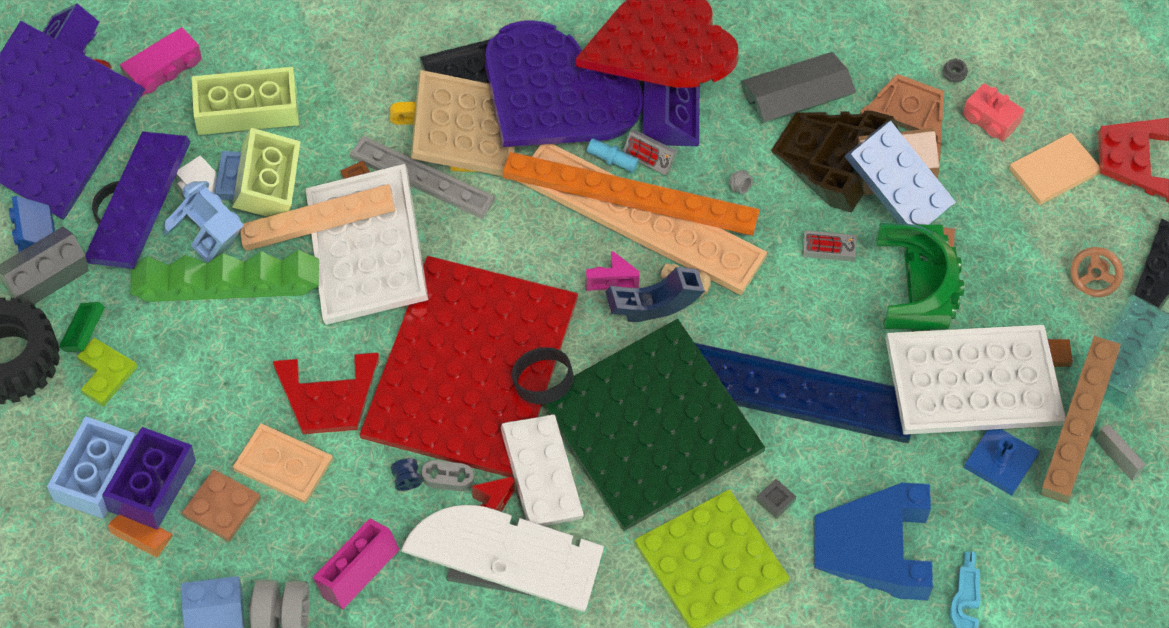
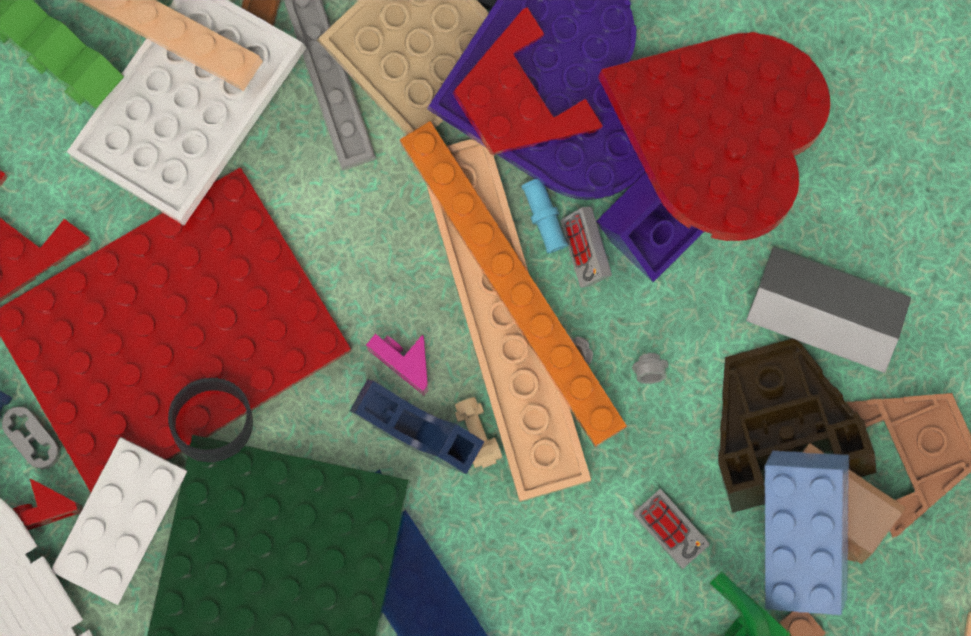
camera: 45 degrees right, 20 degrees up
(542, 110) = (506, 104): none -> red wing

